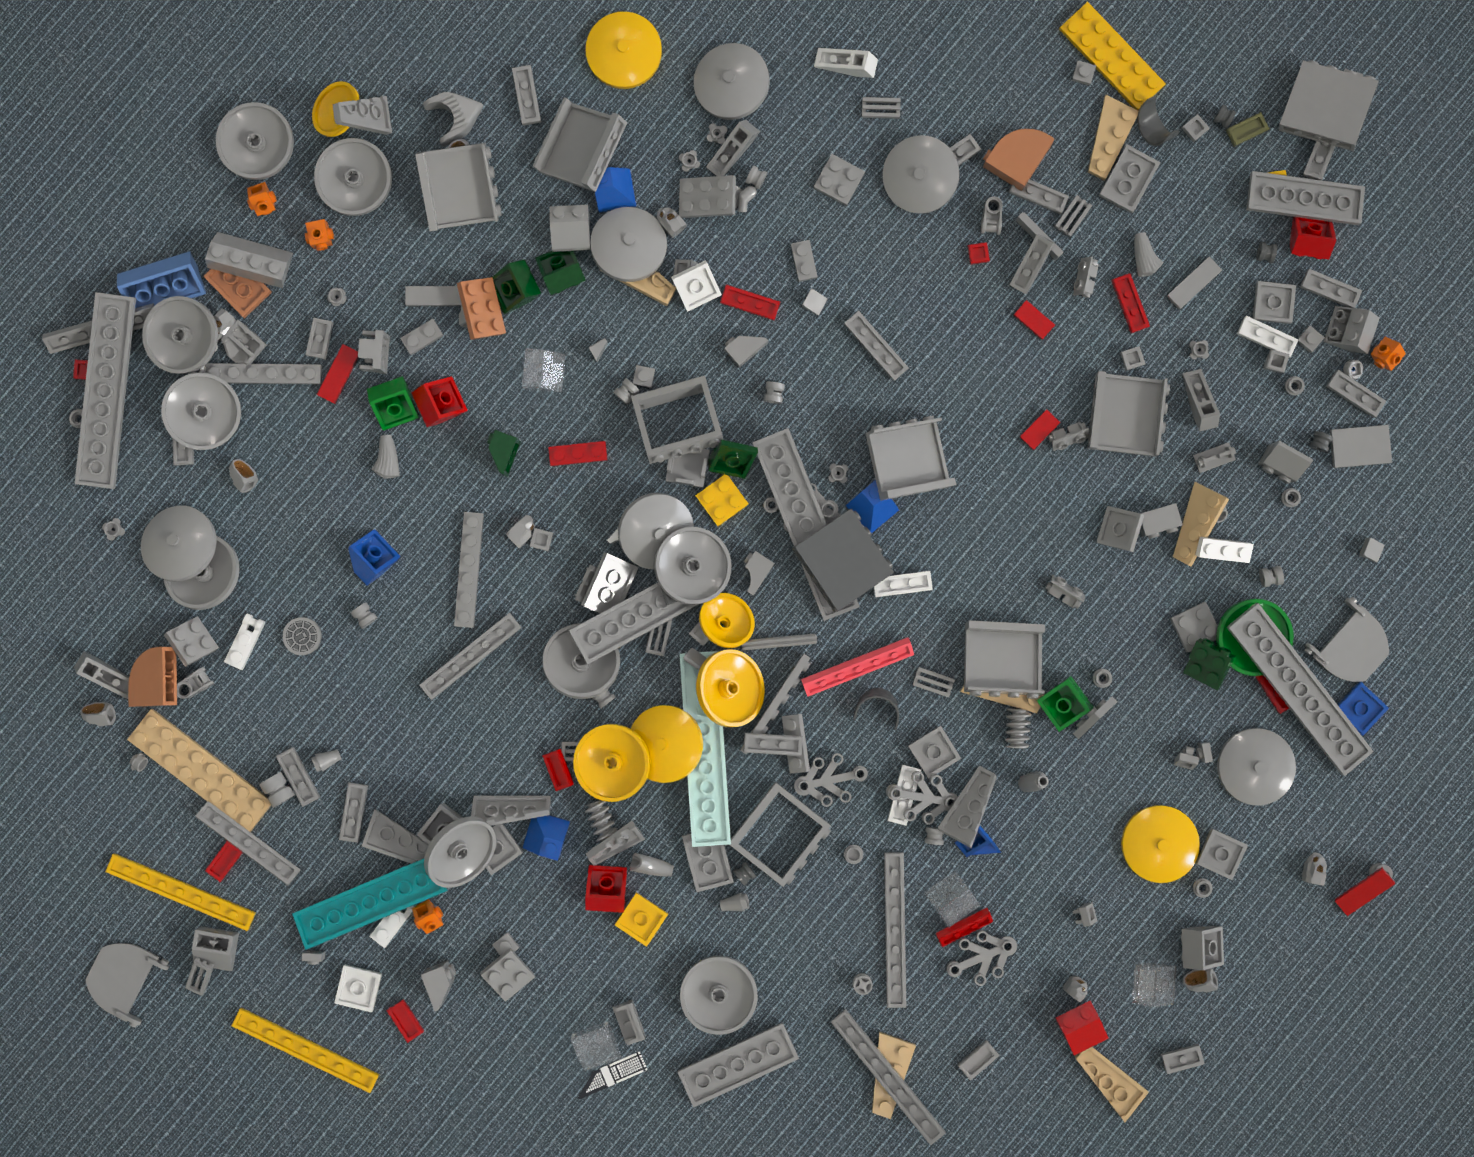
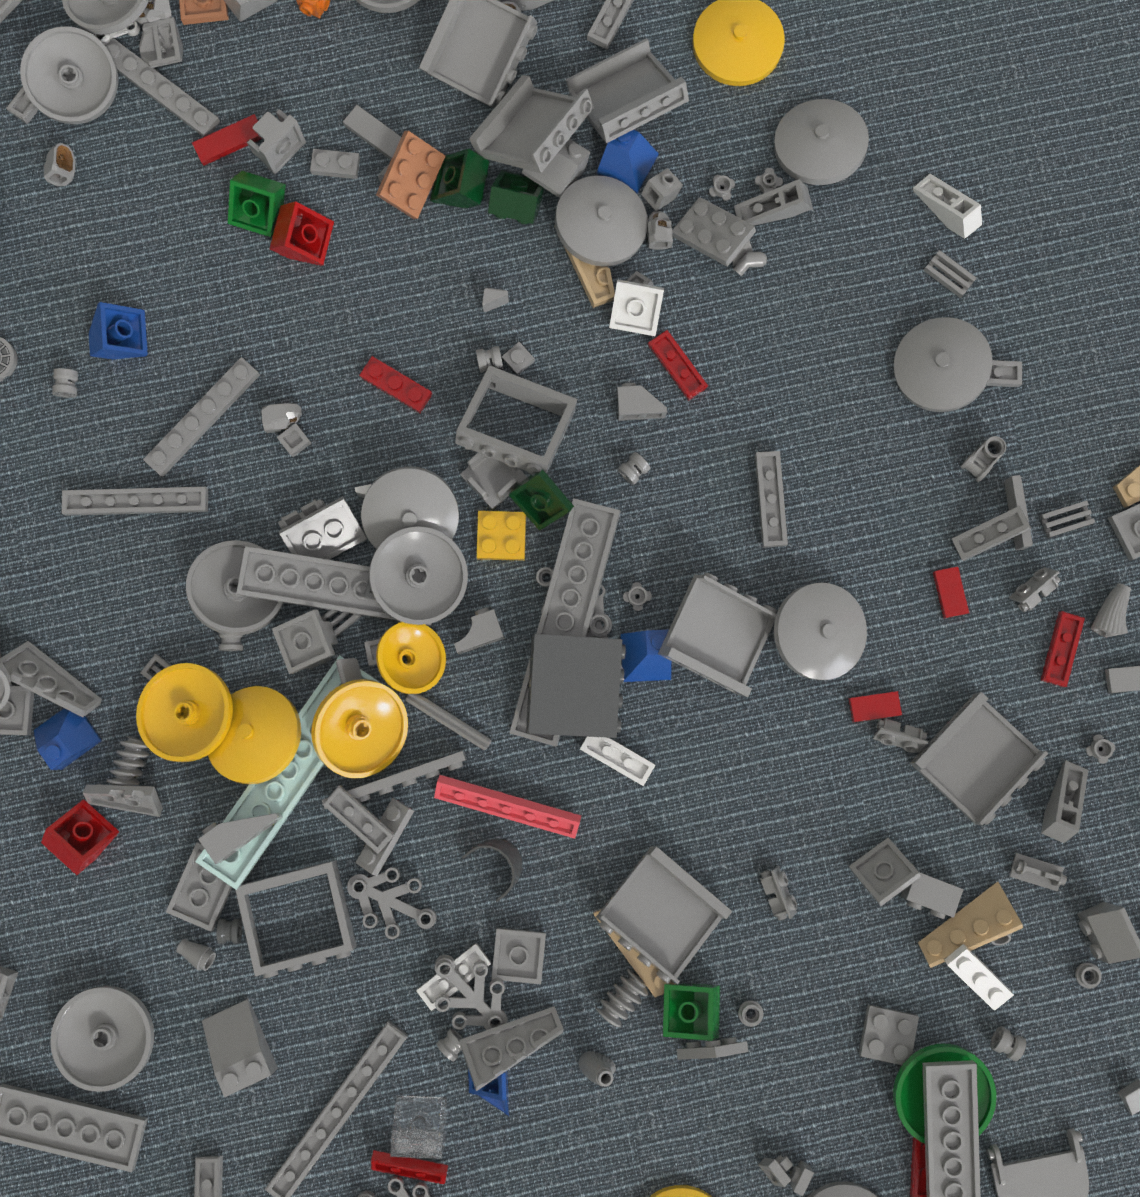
camera: 40 degrees right, 5 degrees down
(319, 338) = (236, 93): light grey plate -> none
(332, 296) = (284, 61): light grey plate -> none
(387, 460) = (207, 253): light grey piece -> none
(503, 450) = (322, 325): dark green slope -> none
(536, 217) = (530, 126): none -> light grey panel
(543, 370) = (424, 279): clear slope -> none
(558, 770) = (129, 679): red tile -> none
(641, 919) = (90, 896): yellow plate -> none
(650, 865) = (142, 848): light grey piece -> none
(652, 193) = (662, 189): none -> light grey brick
(652, 661) = (305, 641): none -> light grey panel
(703, 813) = (229, 837): none -> light grey slope
(756, 177) = (775, 249): light grey wheel -> none
(804, 260) = (761, 364): light grey plate -> none
(805, 938) = (238, 1048): none -> light grey slope
(814, 302) = (741, 411): slope -> none
(839, 179) = (856, 312): light grey plate -> none
(853, 854) = (355, 997): light grey plate -> none
(863, 987) = (256, 1149): light grey wheel -> none
(948, 687) = (584, 900): light grey tile -> none
(970, 408) = (820, 631): none -> light grey dish
(978, 253) = (942, 485): red tile -> none
(1018, 156) = (1055, 418): nougat brick -> none
(1041, 196) = (1047, 472): light grey tile -> none
(1132, 358) = (1024, 706): light grey plate -> none
(1209, 663) = (875, 1086): dark green plate -> none

